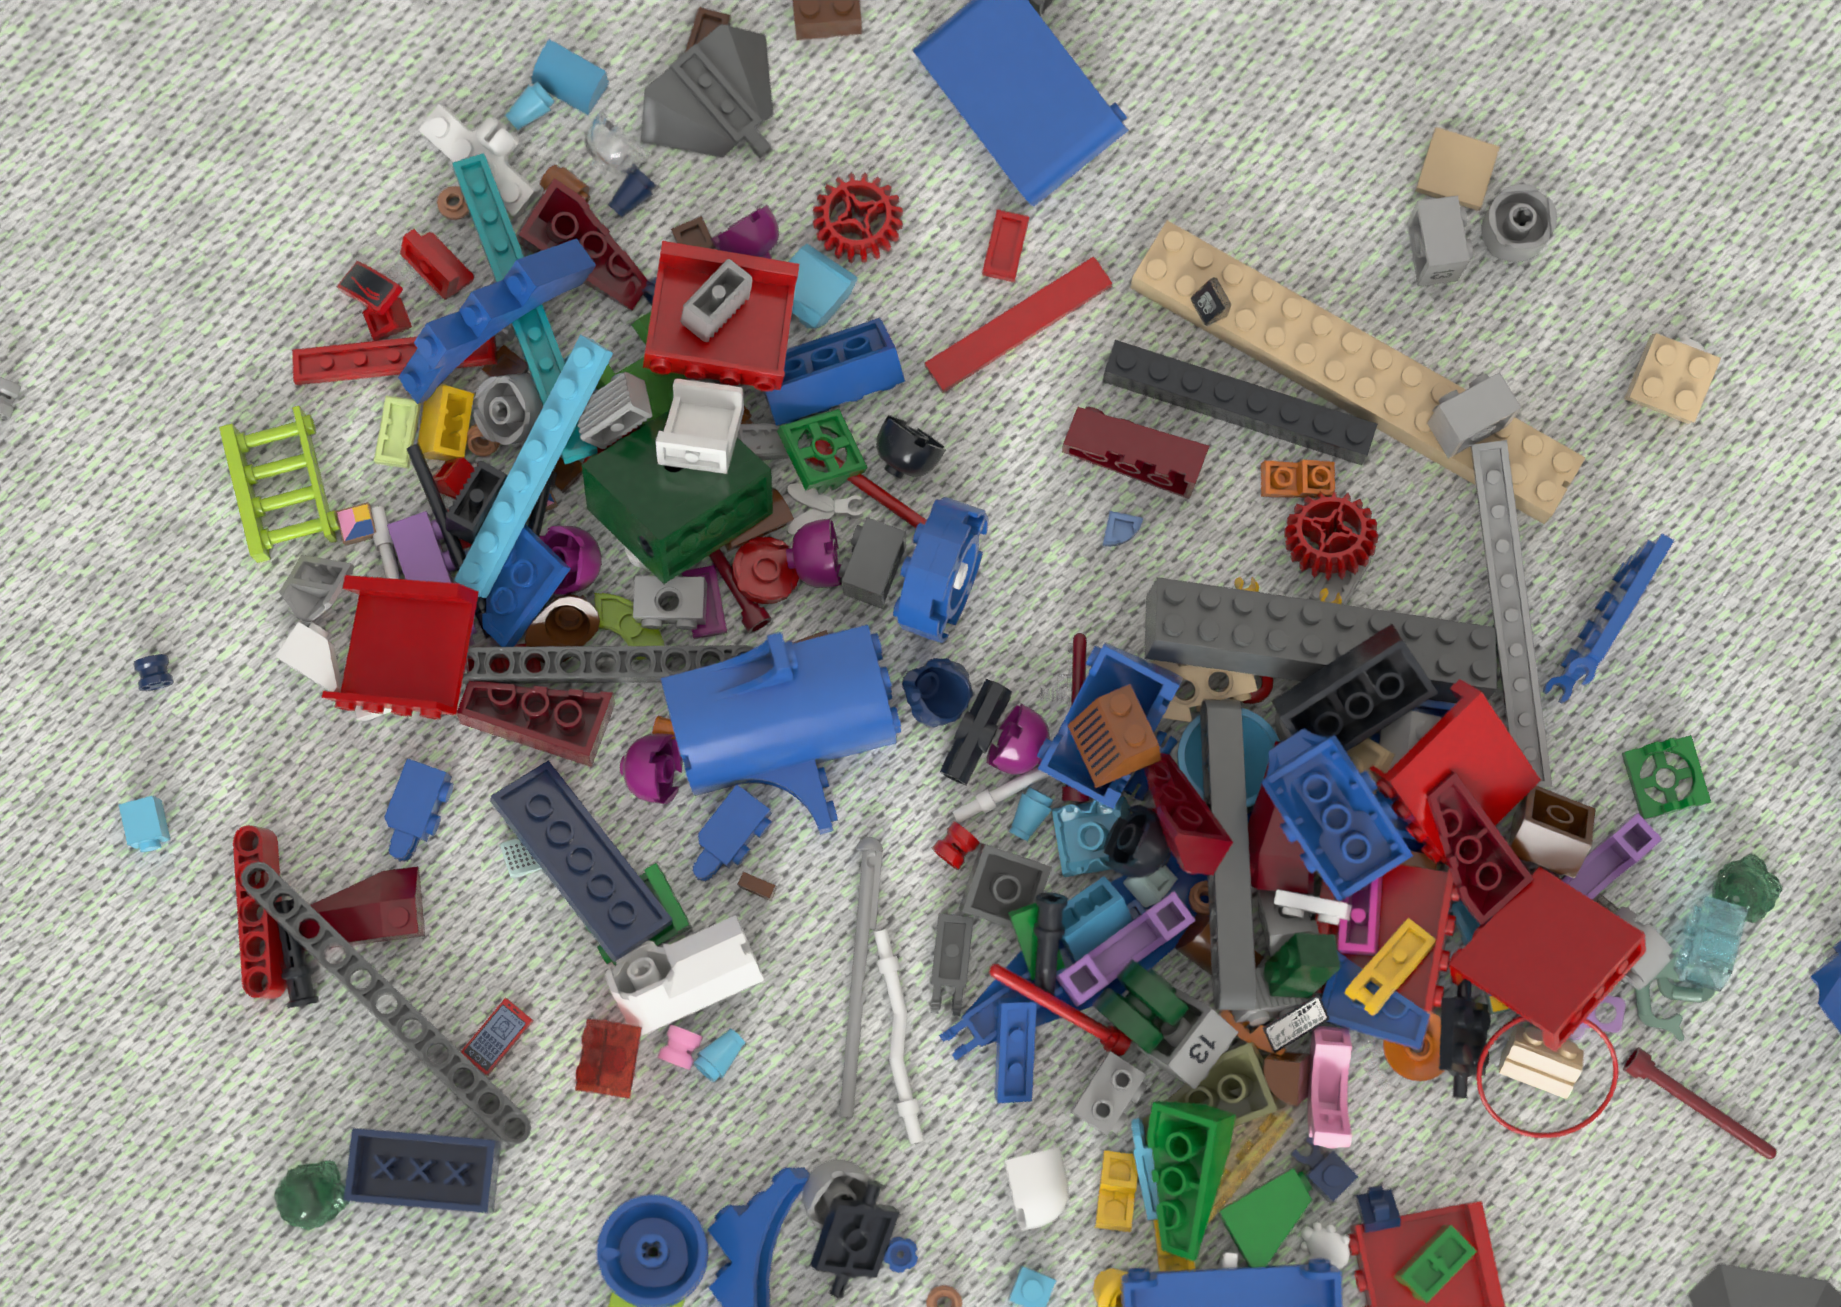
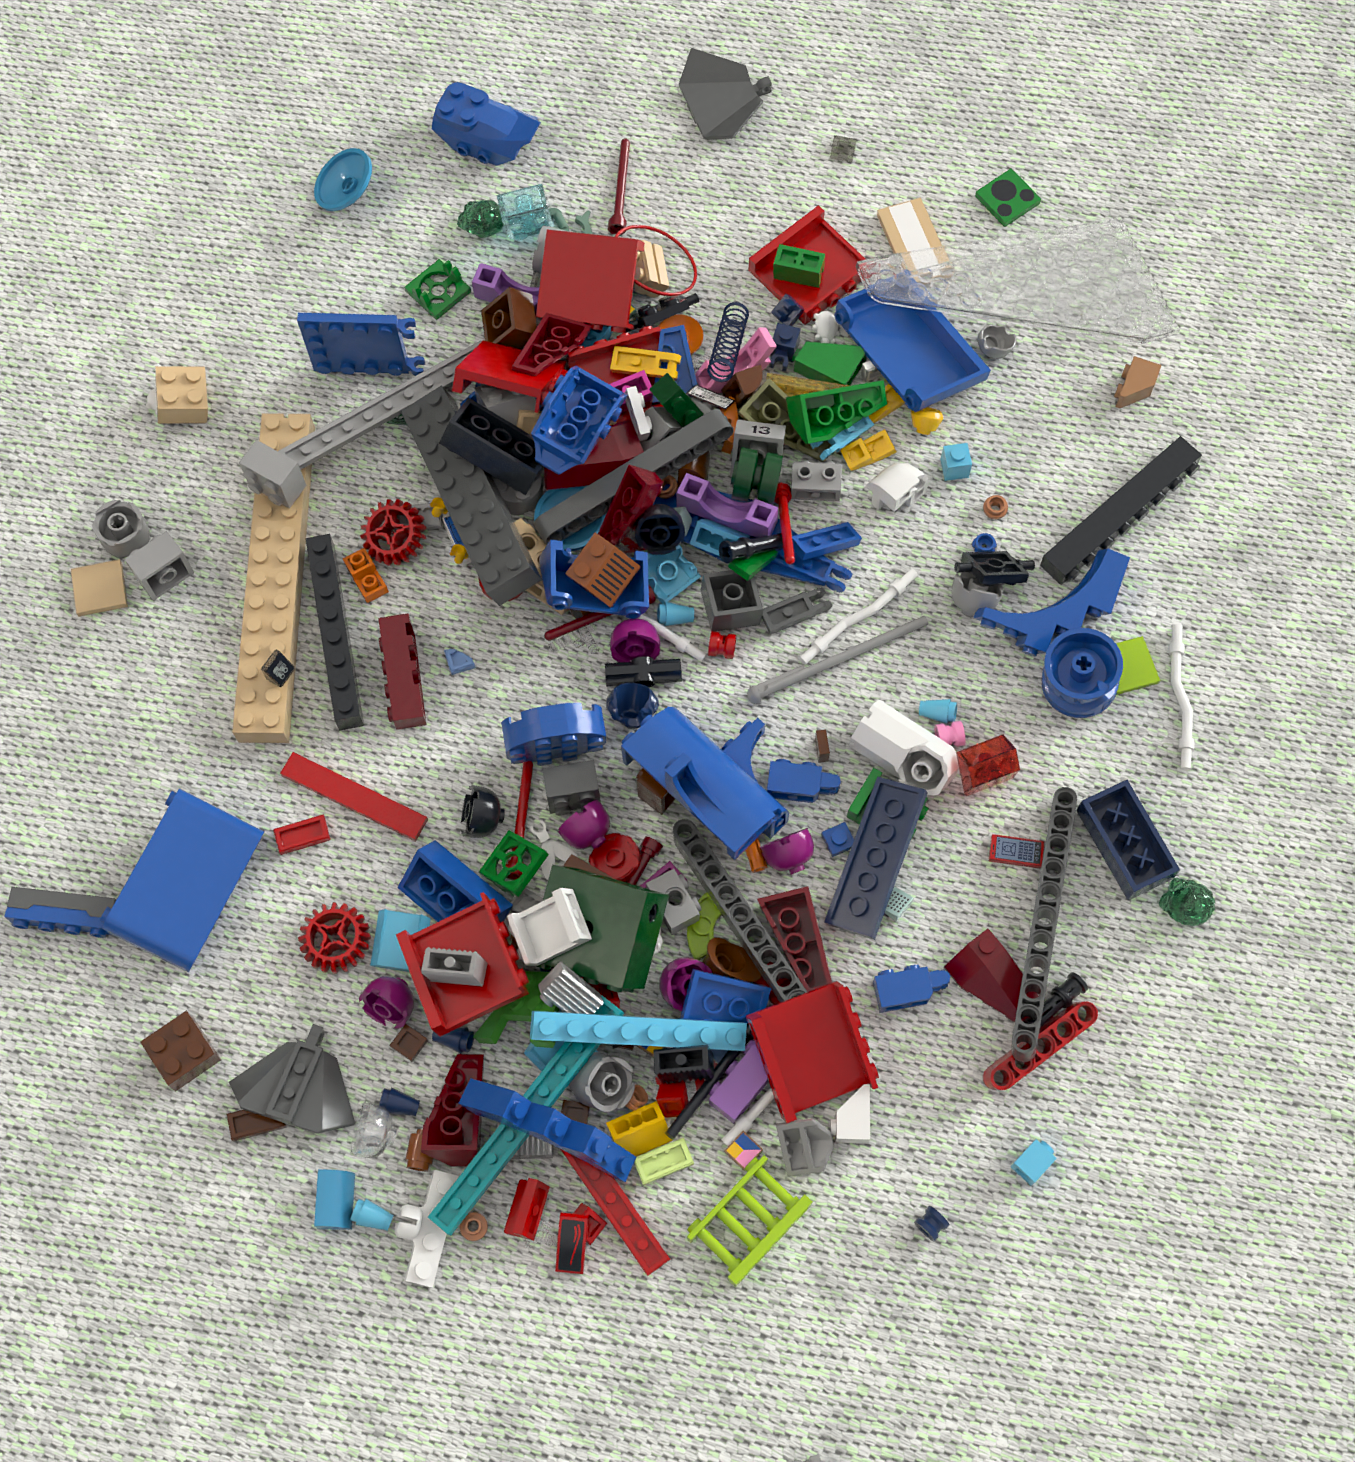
camera: 120 degrees left, 10 degrees down
(636, 838) = (838, 839): none -> blue plate
(1322, 1055) = (731, 323): none -> dark blue piece

